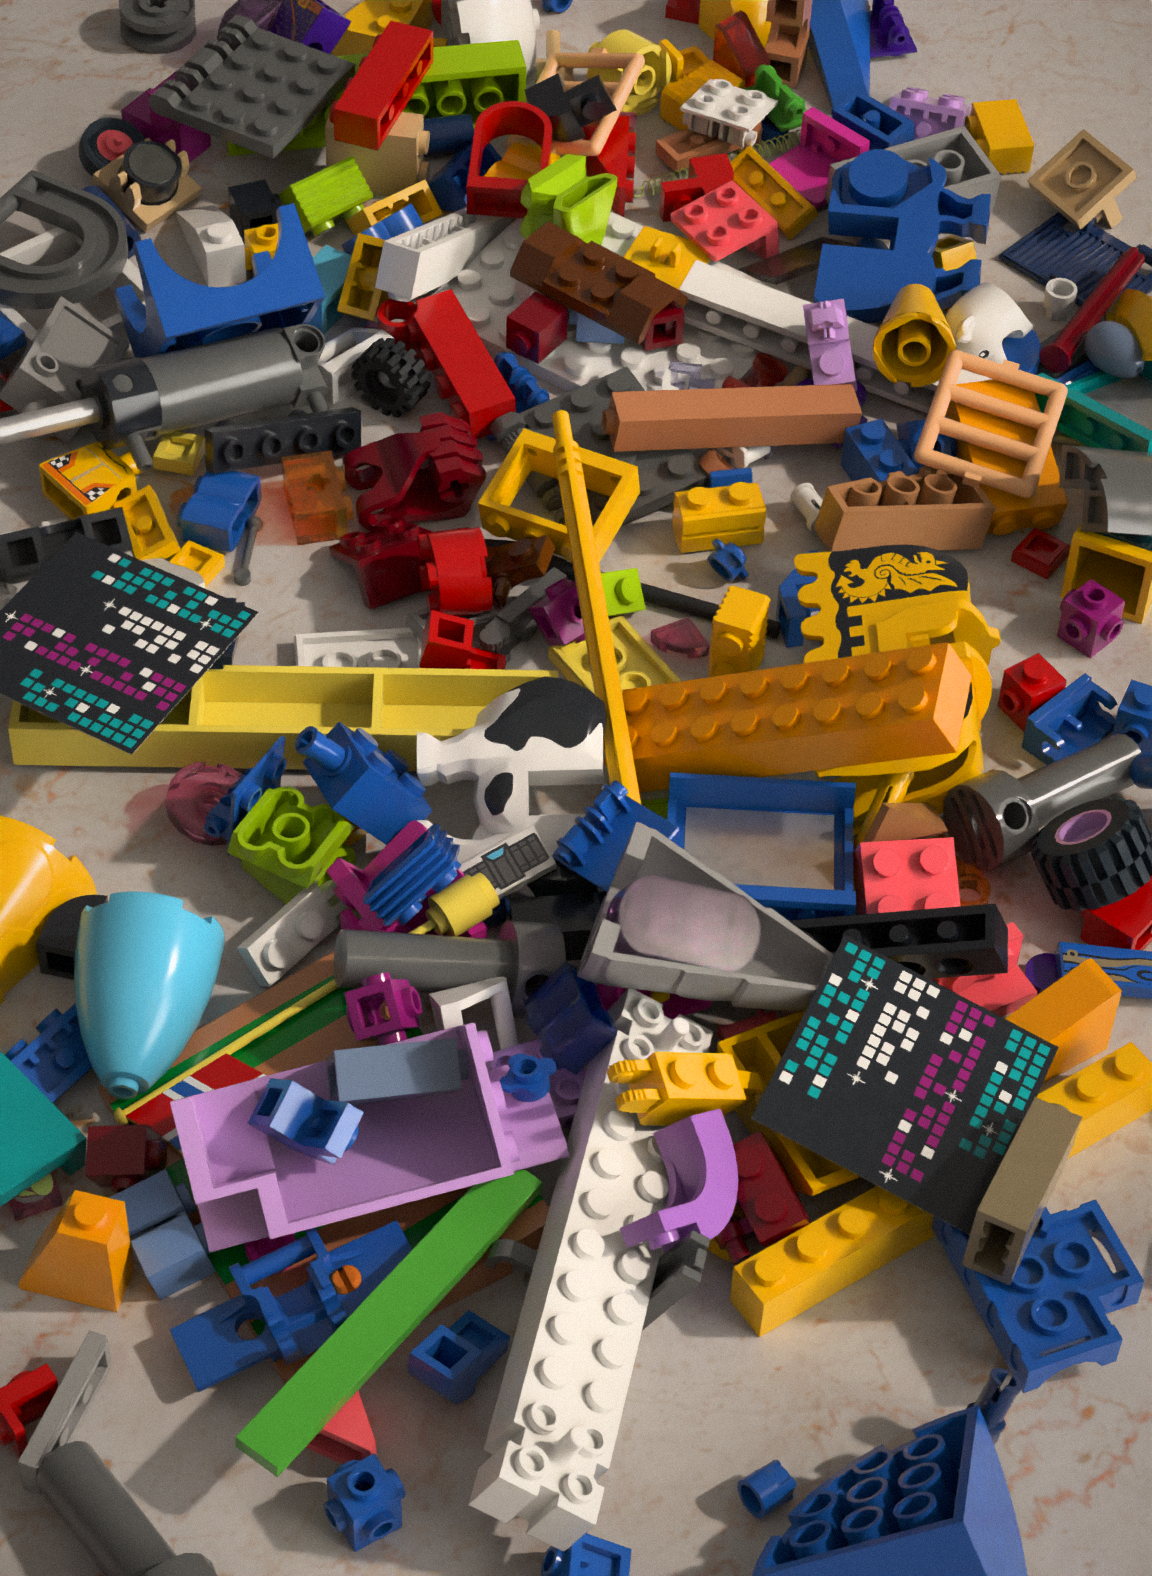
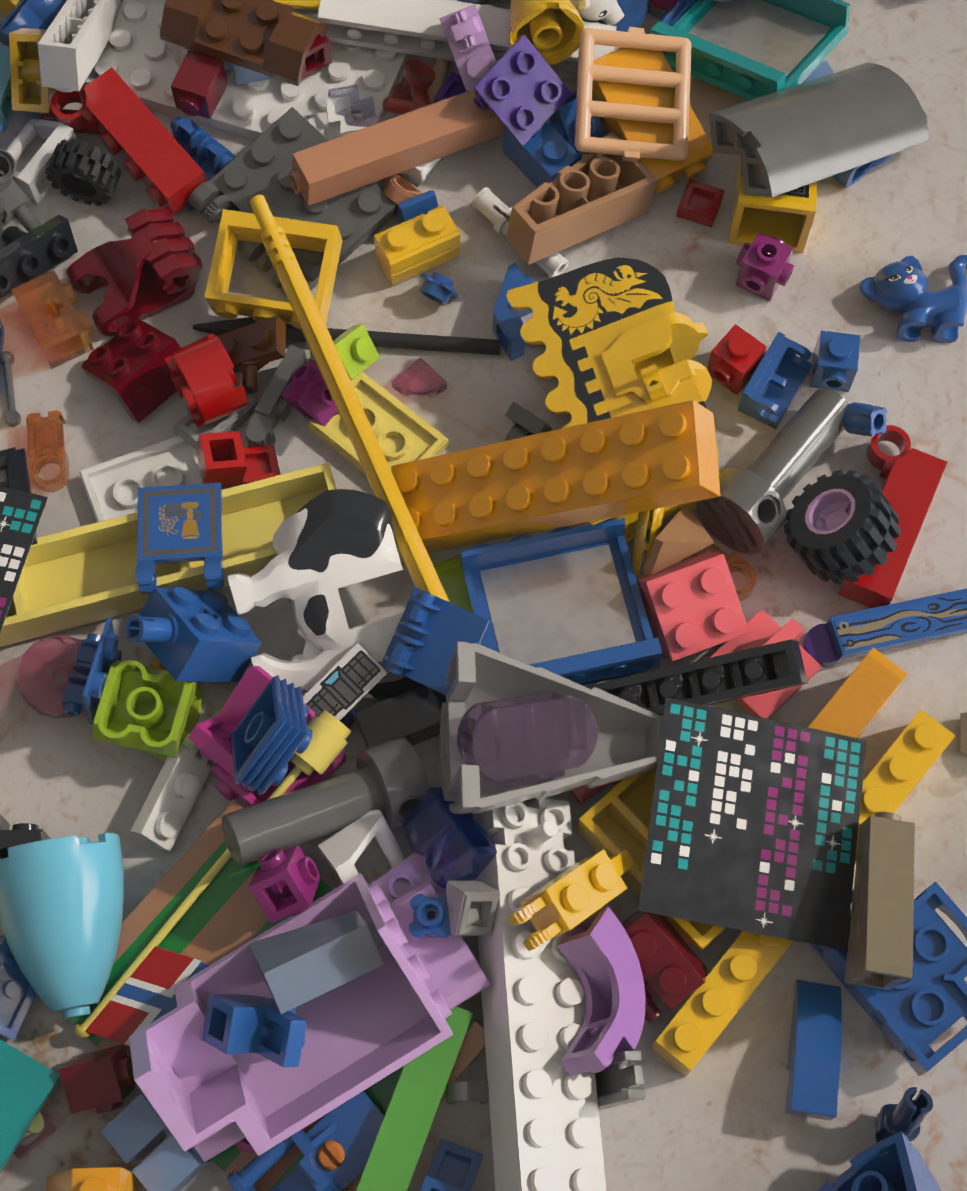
camera: 15 degrees left, 20 degrees up
(271, 599) = (47, 446): none -> clear orange piece
(383, 687) = (179, 526): none -> blue flag
(573, 1078) = (471, 907): none -> light grey slope
(738, 632) = (473, 377): yellow brick -> none
(871, 392) = (521, 90): none -> dark purple hinge
(909, 1342) = (814, 1051): none -> blue slope

